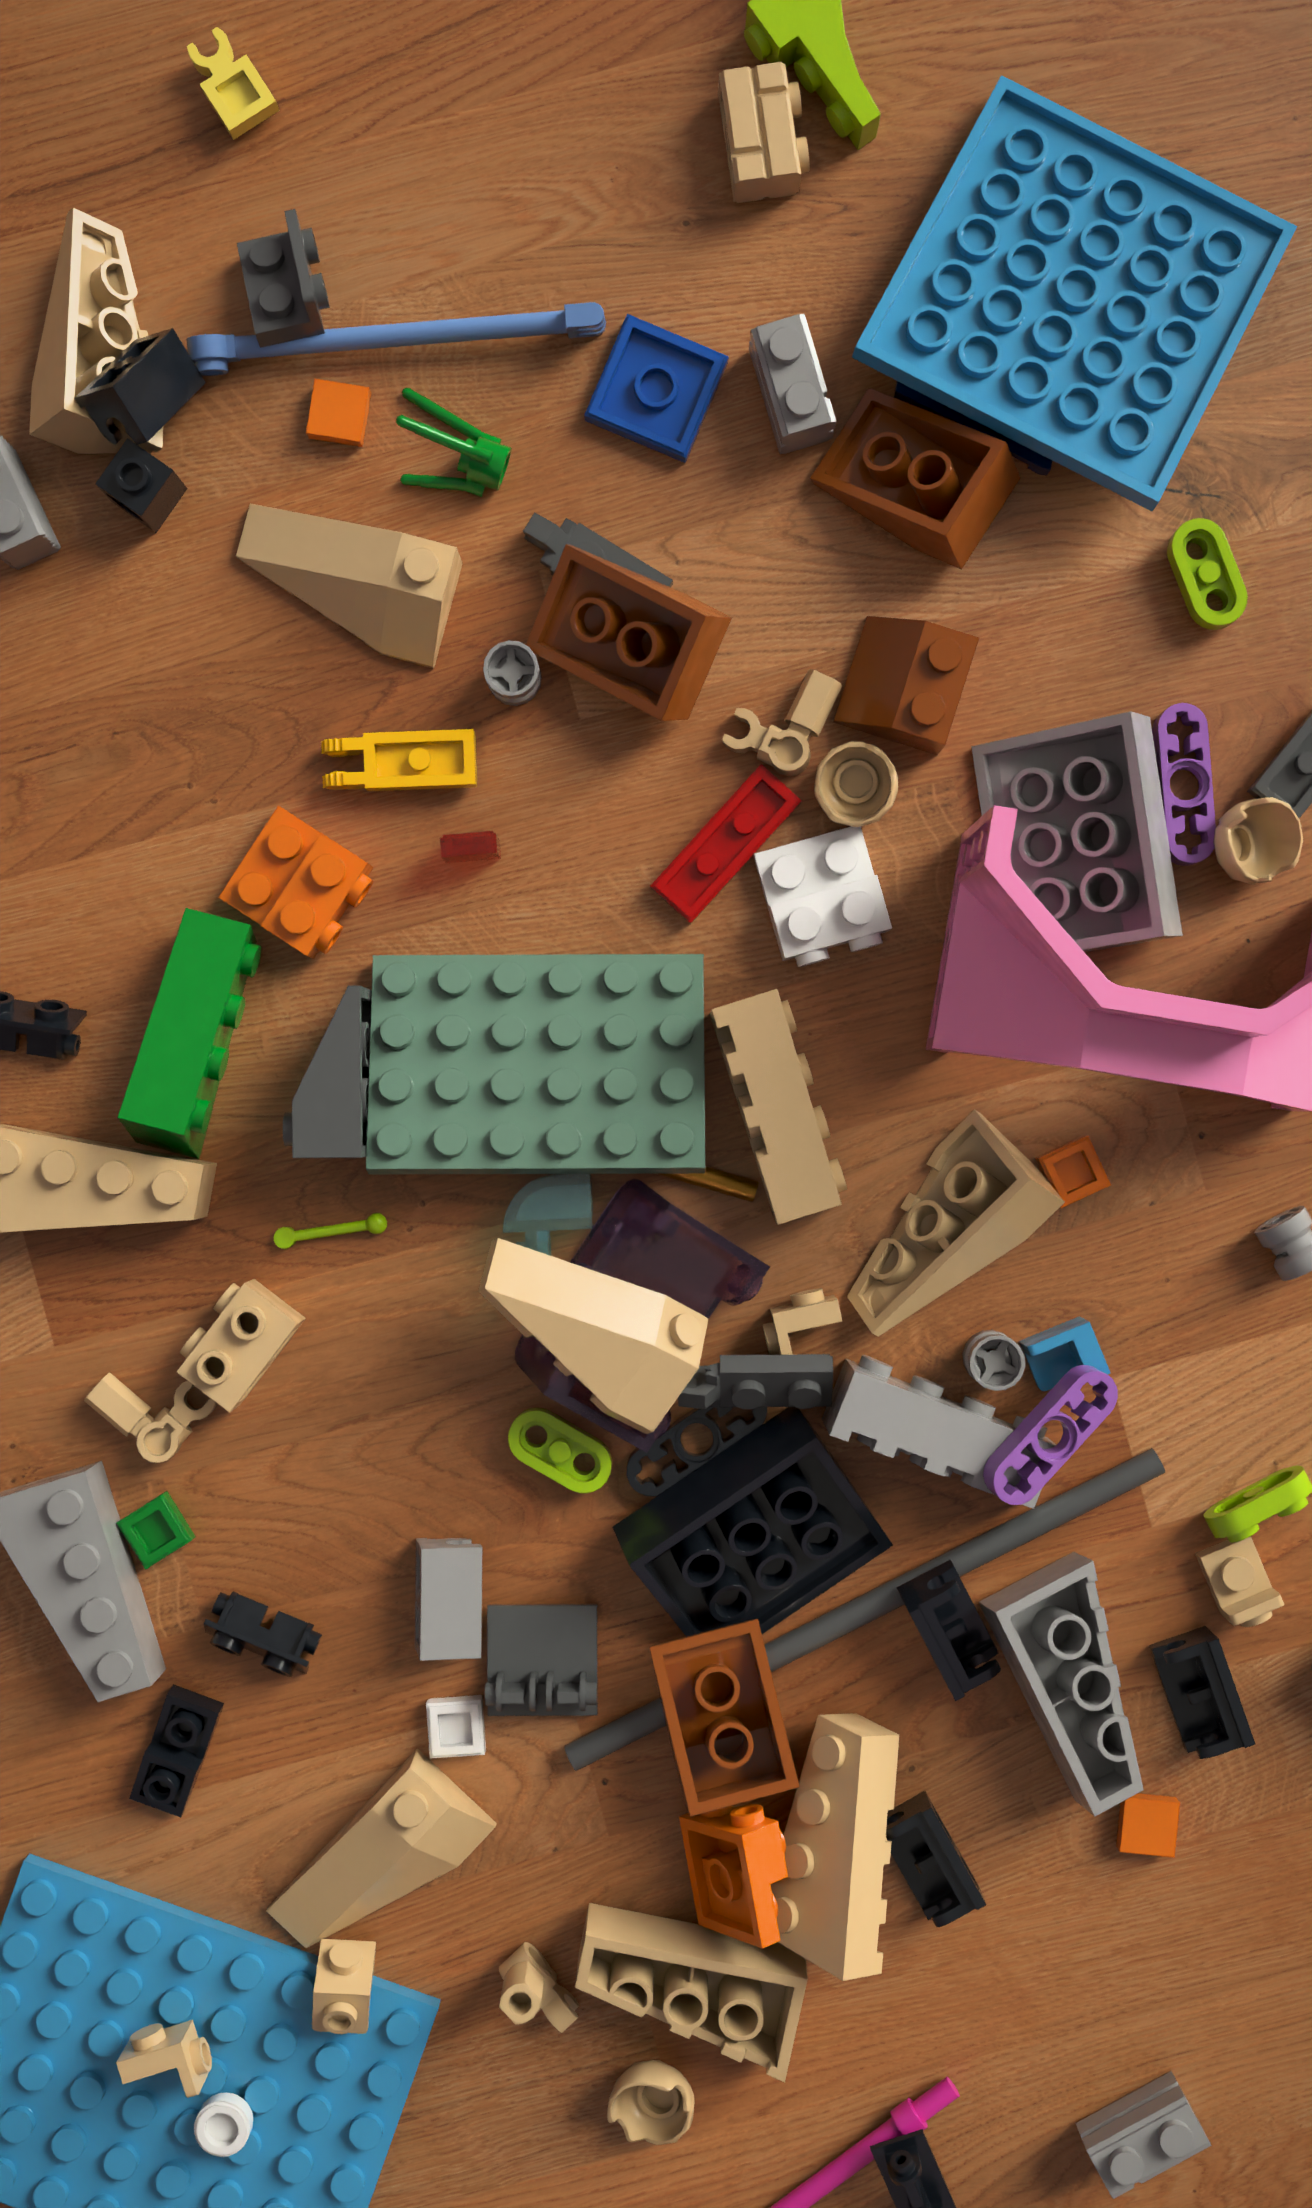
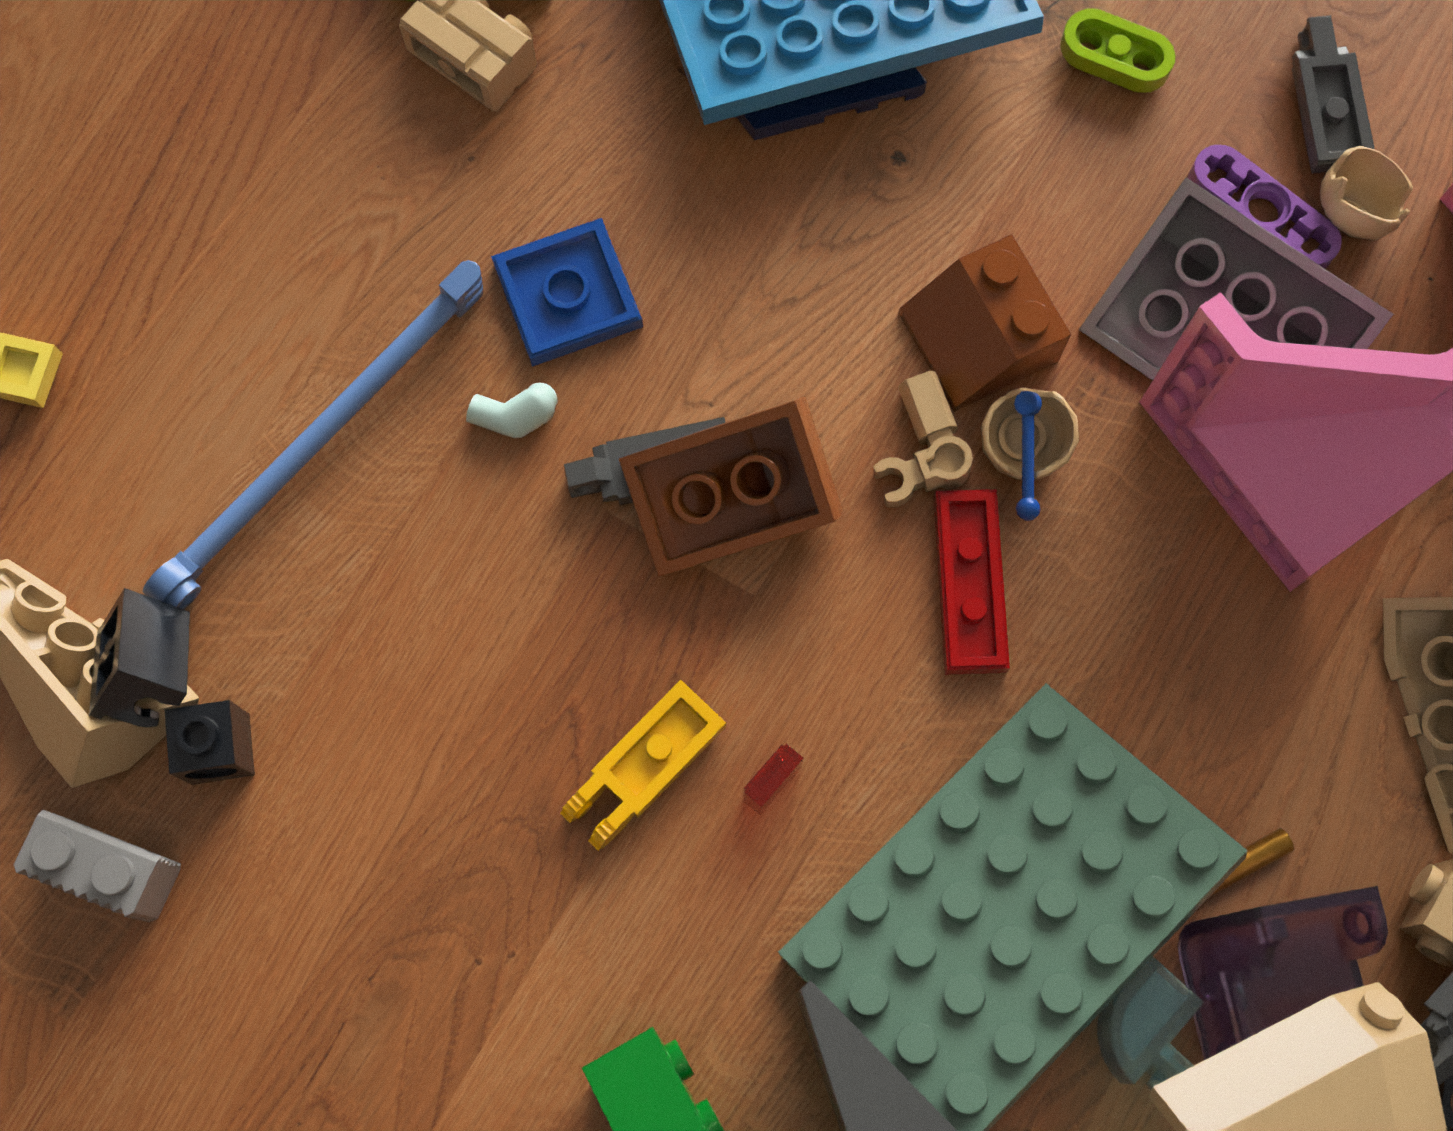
camera: 45 degrees left, 15 degrees down
(281, 286) = (188, 475): dark grey bracket -> none
(298, 883) = (654, 953): orange plate -> none
(338, 412) = (325, 536): orange tile -> none
(365, 578) = (473, 645): tan wedge -> none
(481, 454) = (479, 463): green plant -> none
(509, 663) = (668, 594): light grey wheel -> none
(537, 447) = (518, 415): none -> light aqua arm
(776, 1106) = (1237, 746): tan wedge -> none
(792, 383) = (672, 190): light grey brick -> none
(822, 895) = (1091, 548): white plate -> none
(869, 765) = (1028, 405): none -> blue hinge
(919, 476) = (835, 171): dark orange slope -> none

